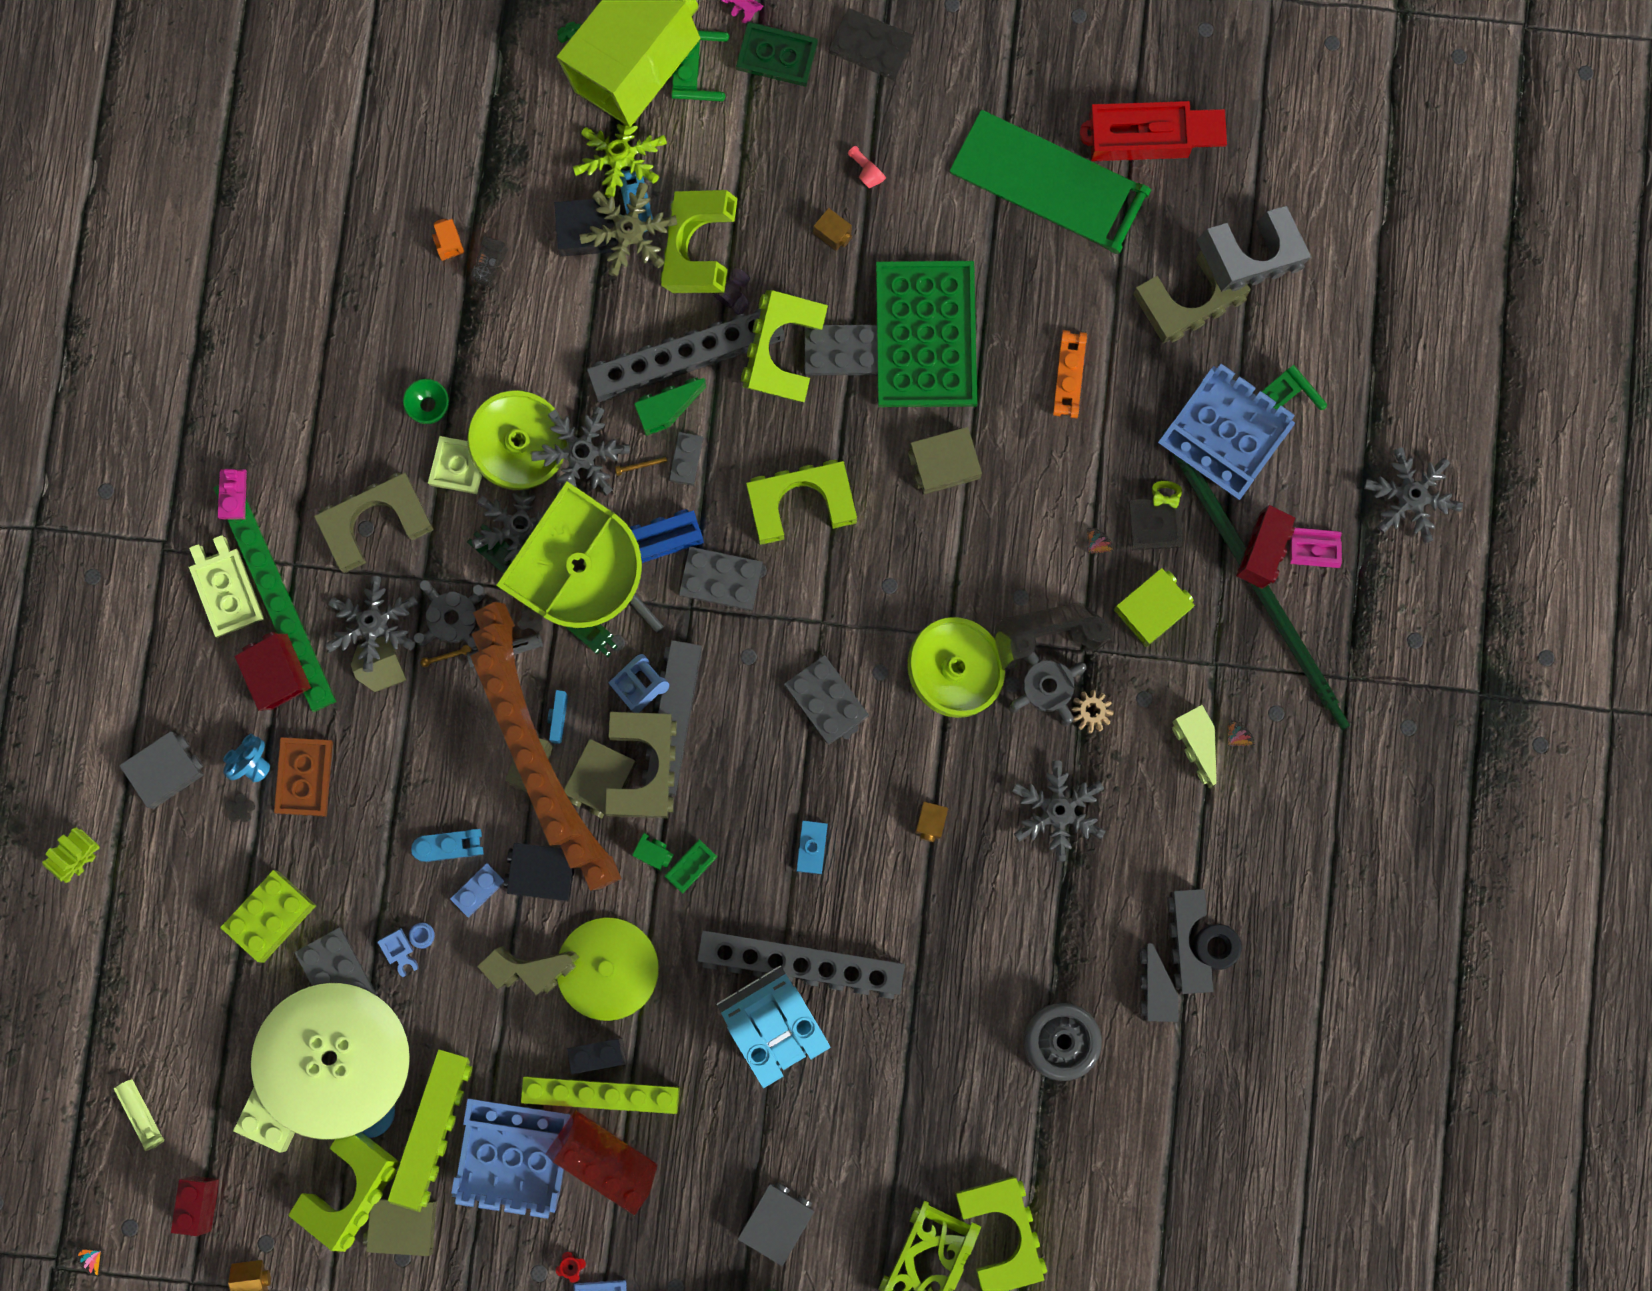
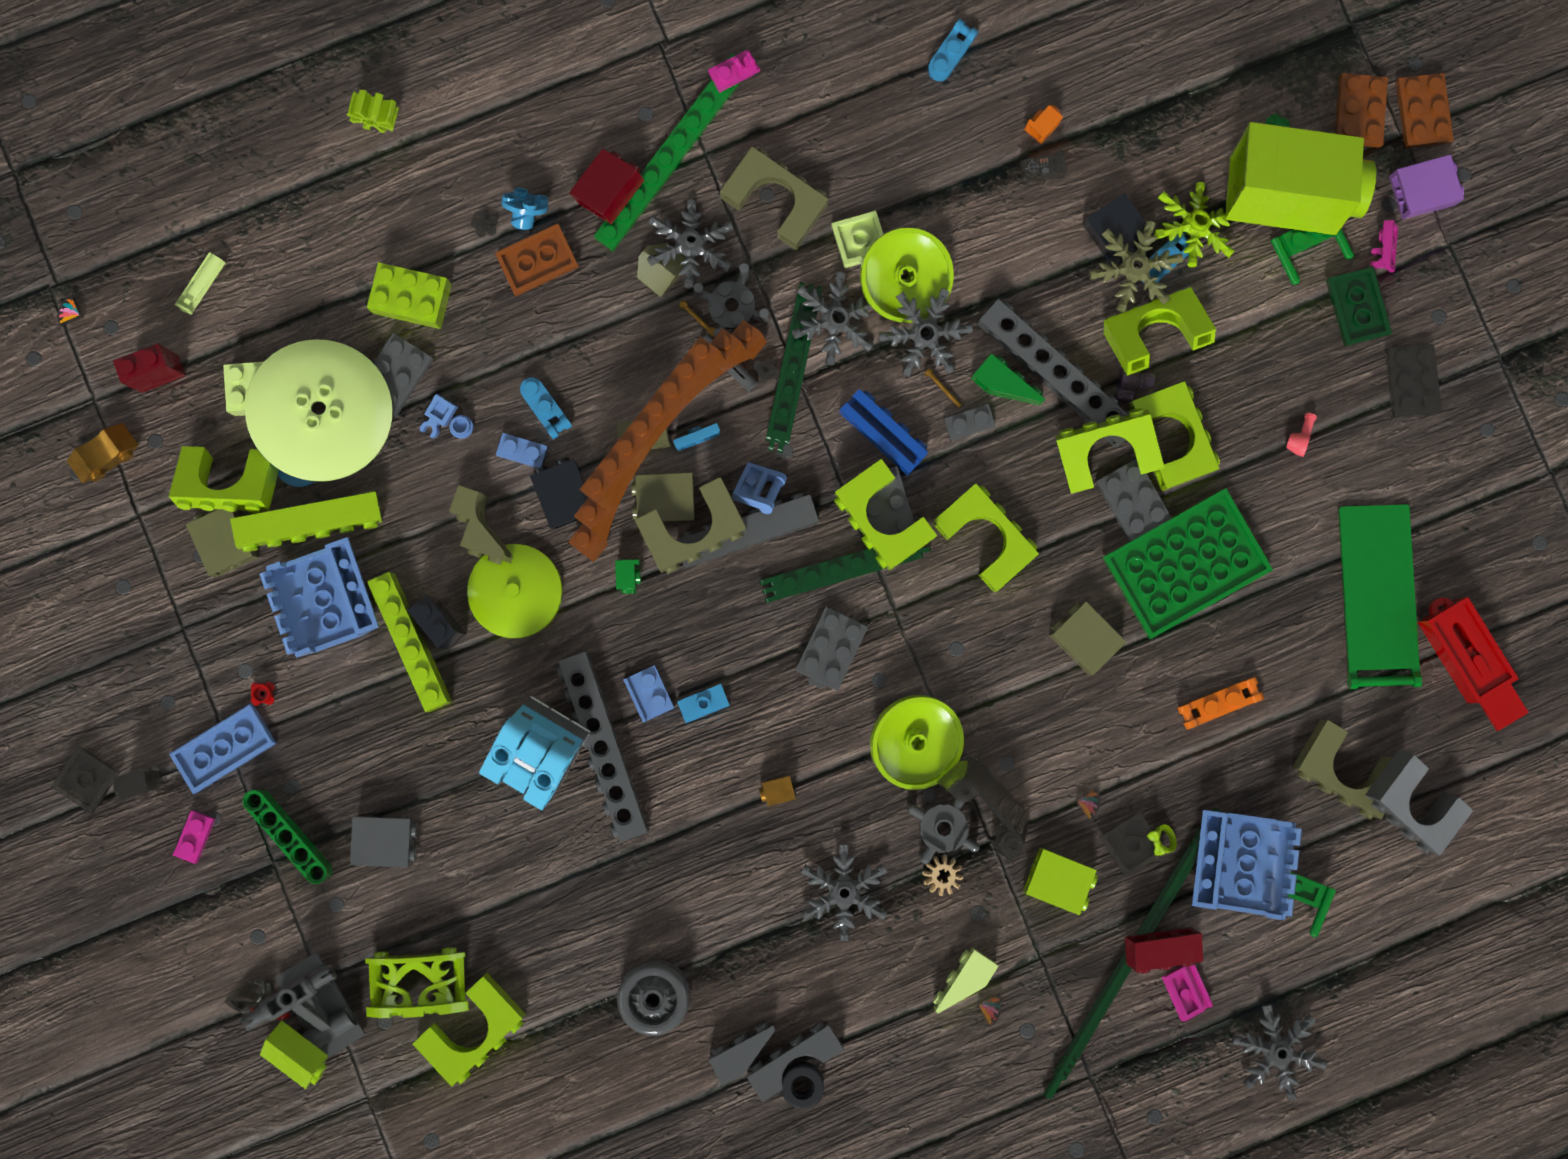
camera: 60 degrees right, 5 degrees up
(162, 769) = (481, 144): dark grey brick -> none
(224, 588) = (655, 109): yellowish green tile -> none
(330, 286) = (951, 51): none -> dark azure plate
(422, 390) = (898, 172): green piece -> none
(544, 570) = (807, 358): lime piece -> none
(603, 1162) = (354, 674): clear red slope -> none
(646, 614) = (827, 446): dark grey bar -> none
(691, 866) = (634, 613): green plate -> none
(700, 601) = (890, 548): none -> lime arch
(757, 647) = (827, 573): none -> dark green hinge
(774, 894) = (649, 693): none -> medium blue plate
(833, 230) = (1232, 437): pearl gold brick -> none
(836, 270) = (1199, 458): none -> lime arch

